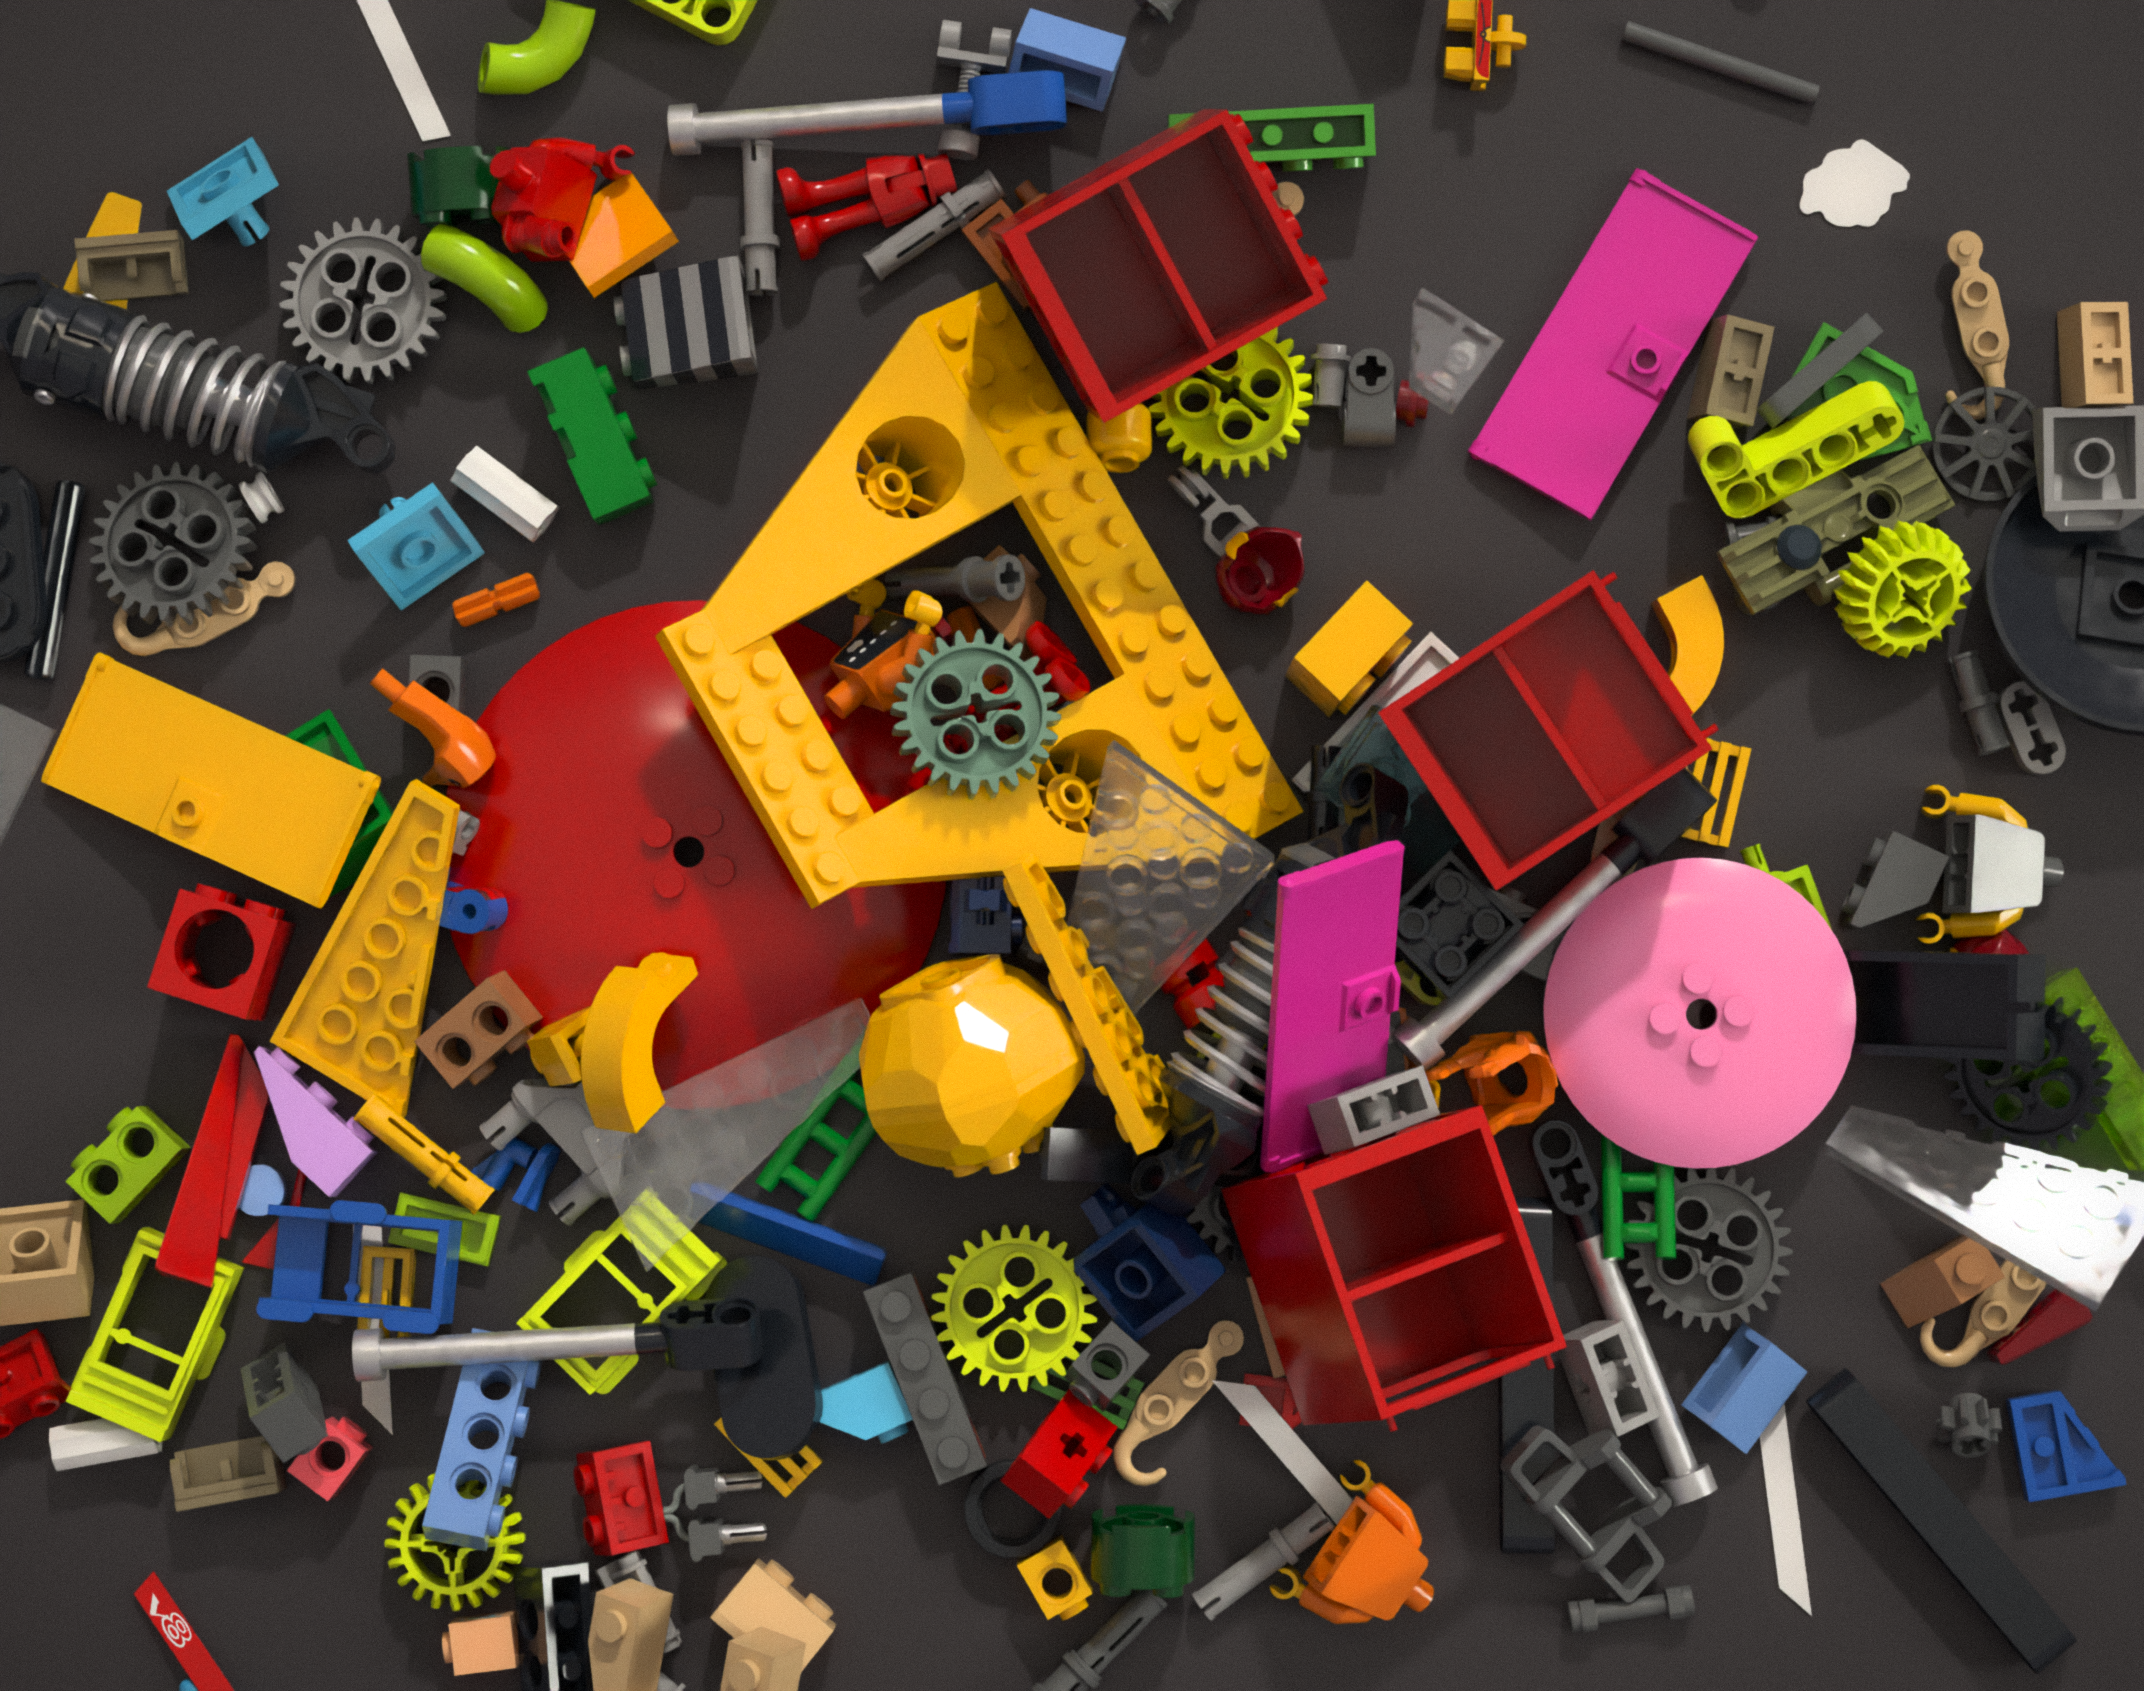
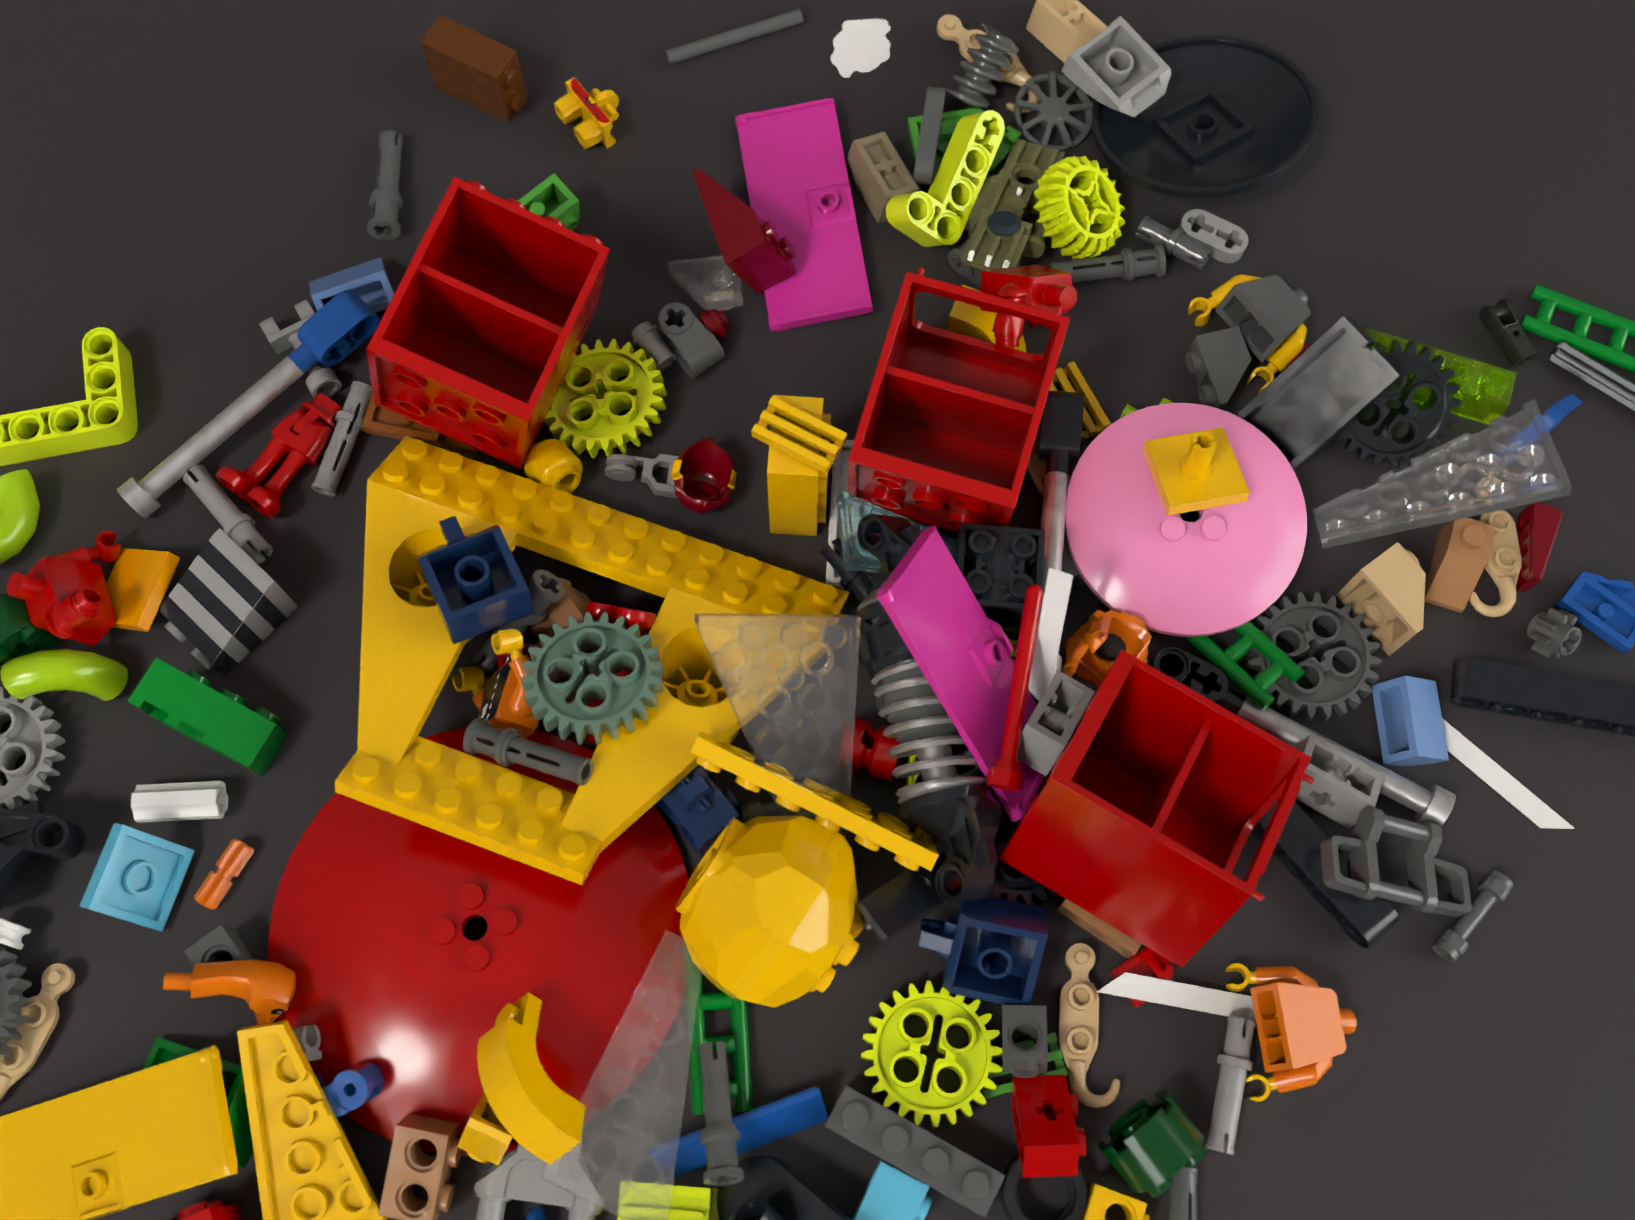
camera: 45 degrees left, 15 degrees down
(763, 1222) = (719, 1134): none -> dark grey pin
(847, 718) = (511, 747): none -> dark grey pin
(937, 525) = (474, 581): none -> dark blue hinge
(1285, 1121) = (1006, 769): none -> red piece
(1338, 604) = (817, 426): none -> yellow tile
(1436, 1028) = (1049, 631): none -> white sticker
(1516, 338) = (745, 240): none -> dark red slope
(1736, 981) = (1195, 471): none -> yellow tile
(1741, 653) = (1028, 285): none -> red torso
(1828, 640) = (1124, 265): none -> dark grey pin
(1831, 1255) = (1389, 596): none -> tan slope
(1947, 339) = (983, 68): none -> dark grey piece

